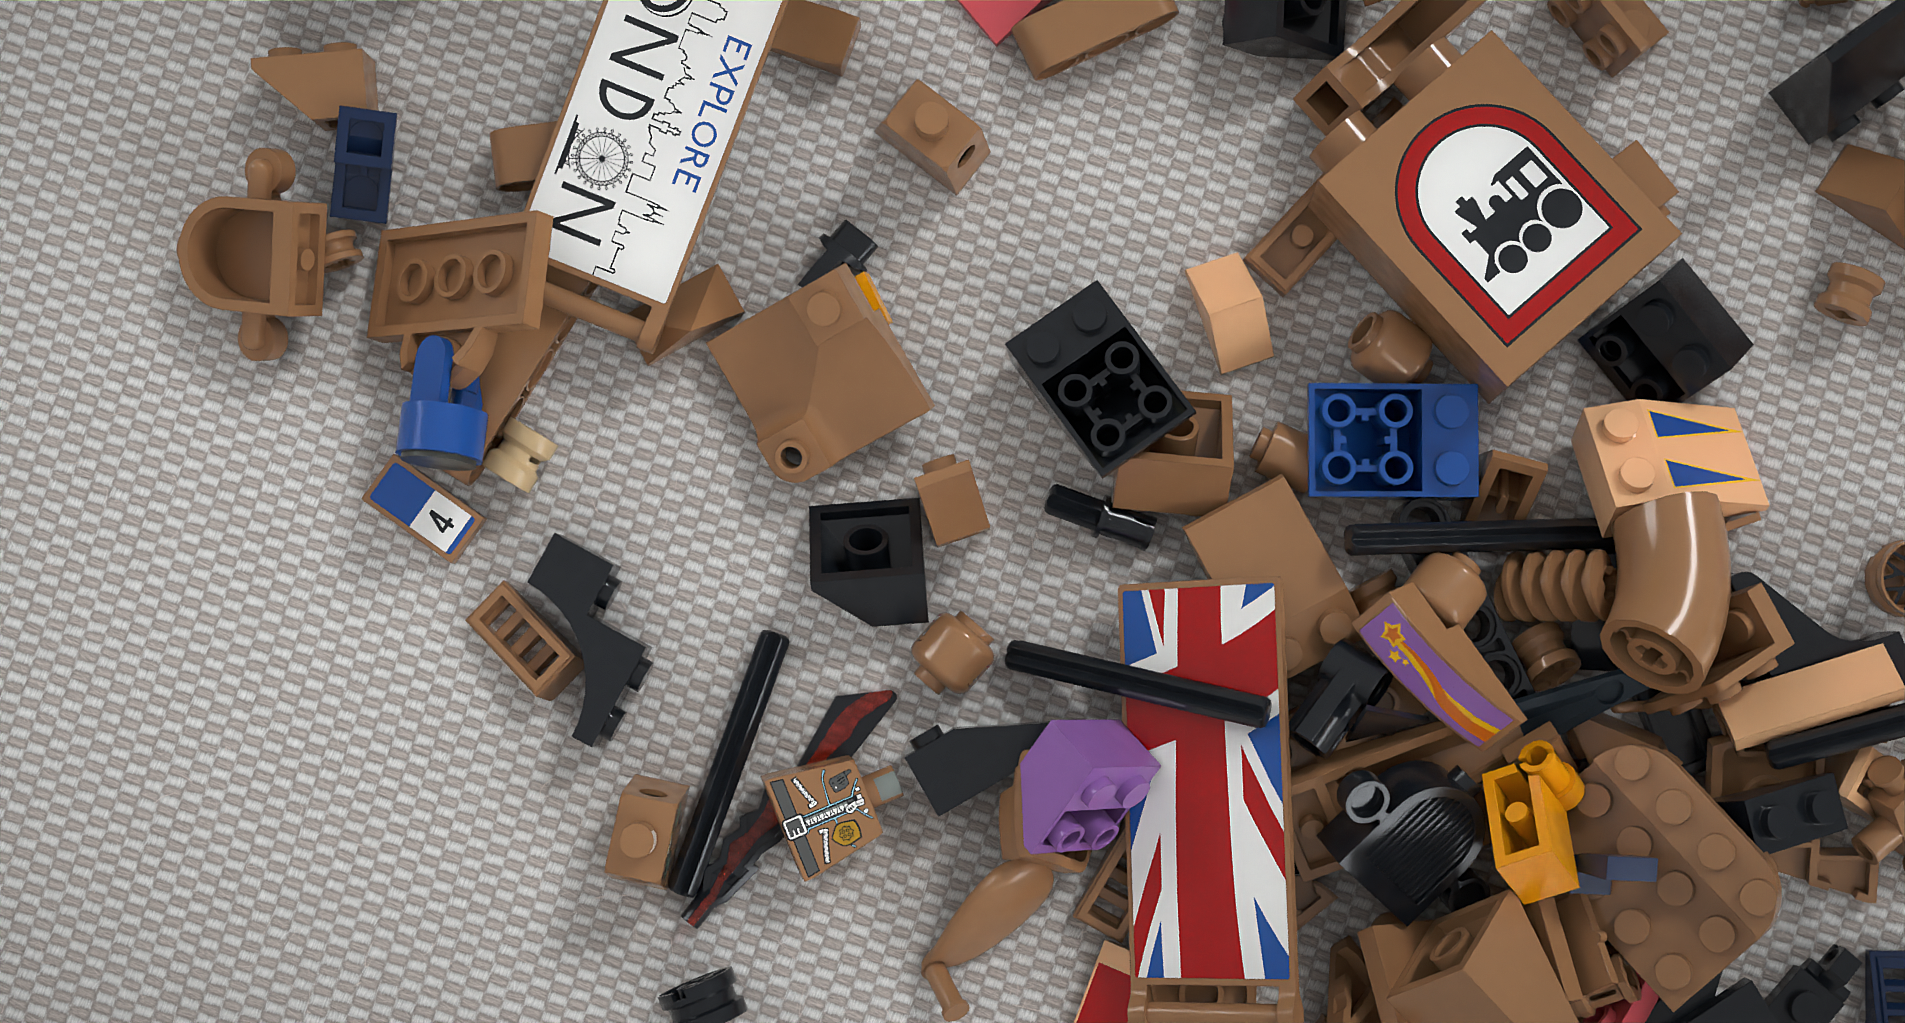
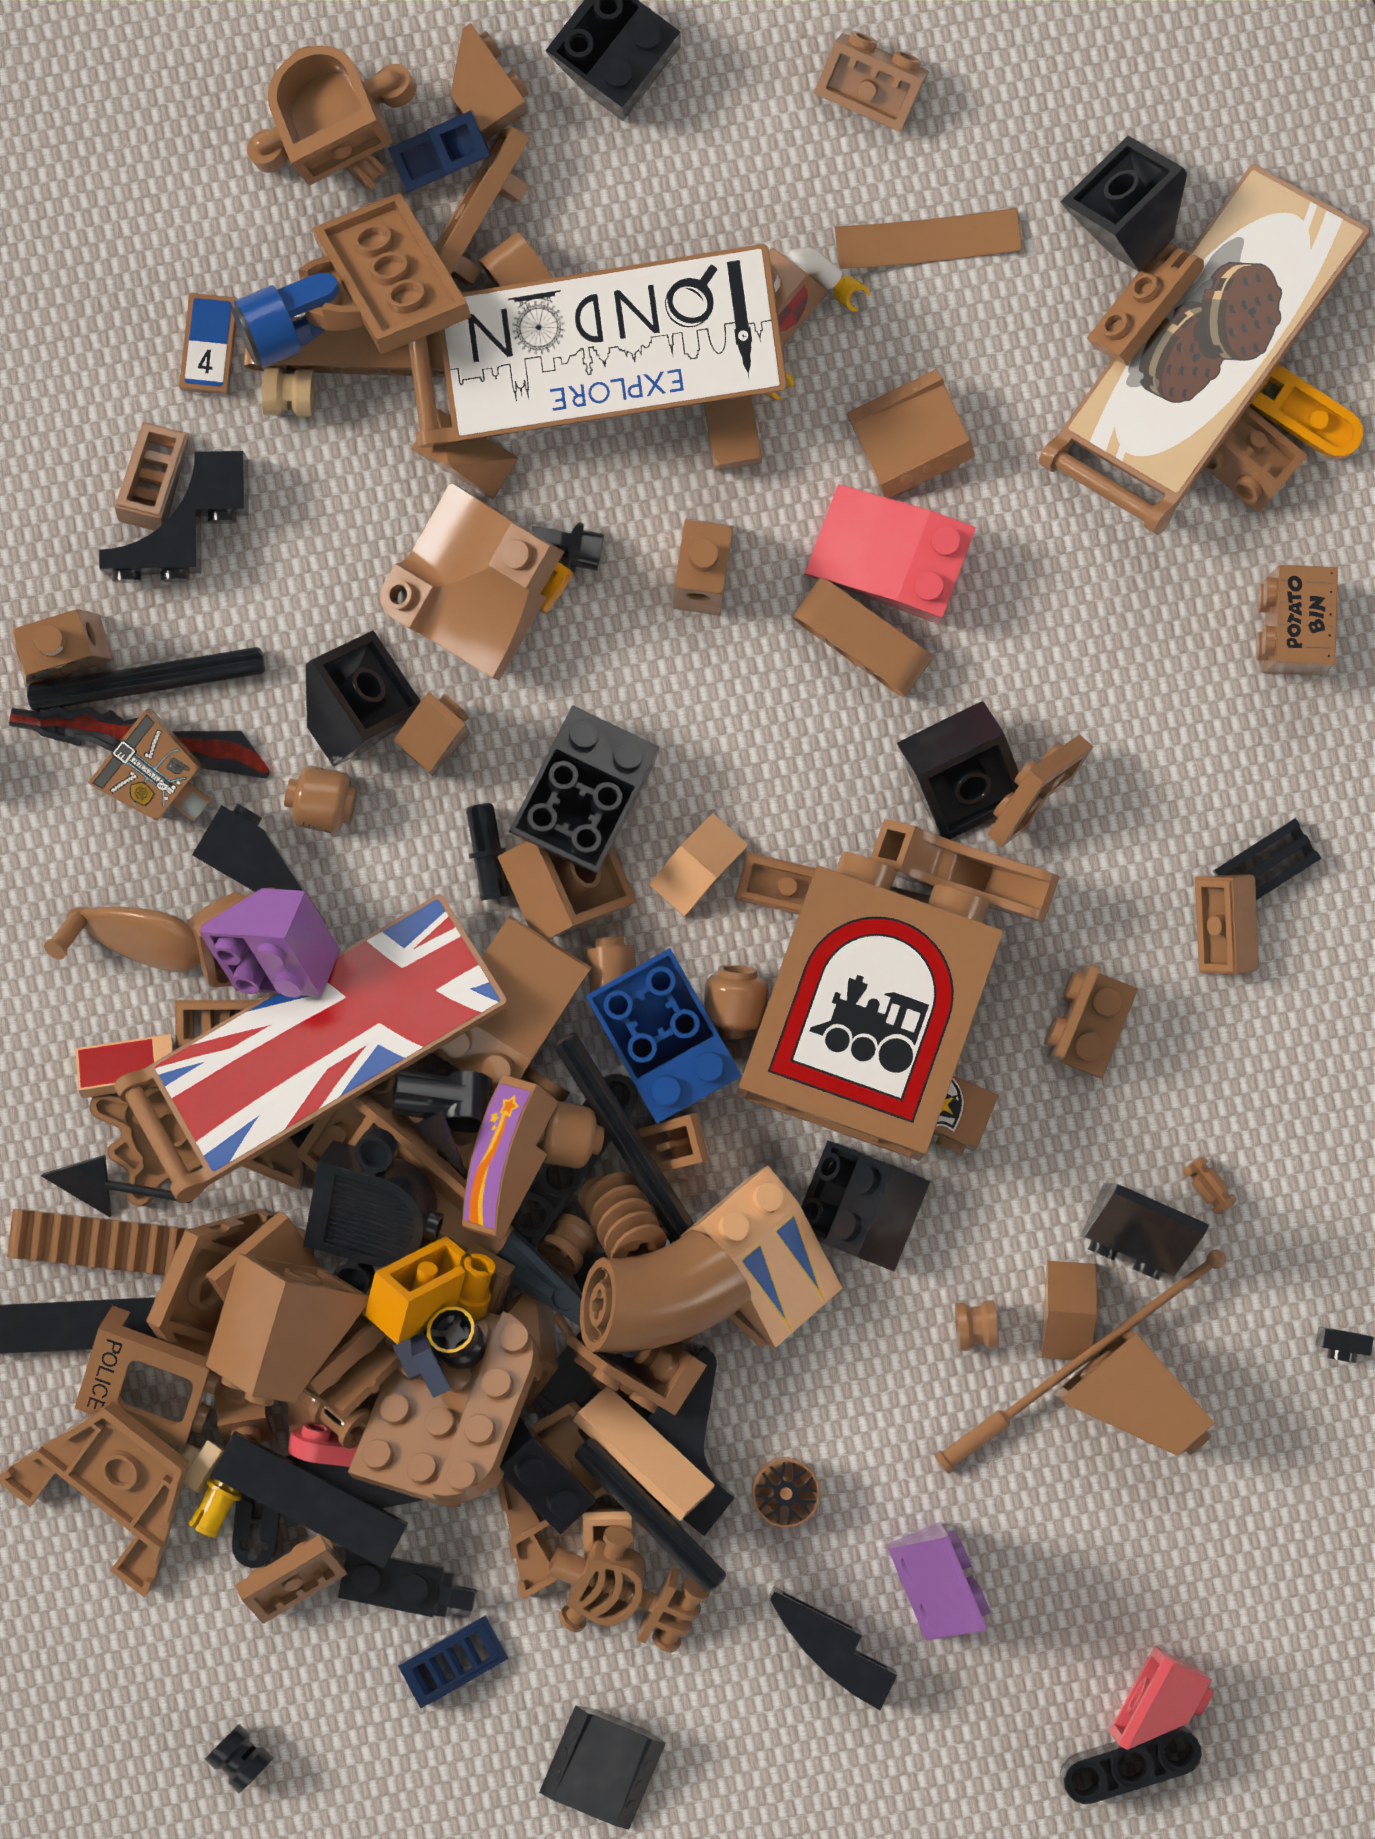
camera: 60 degrees right, 0 degrees up
(423, 132) = (491, 179): none -> medium nougat hinge
(1139, 683) = (372, 945): black axle -> none
(1588, 822) = (452, 1327): none -> black wheel

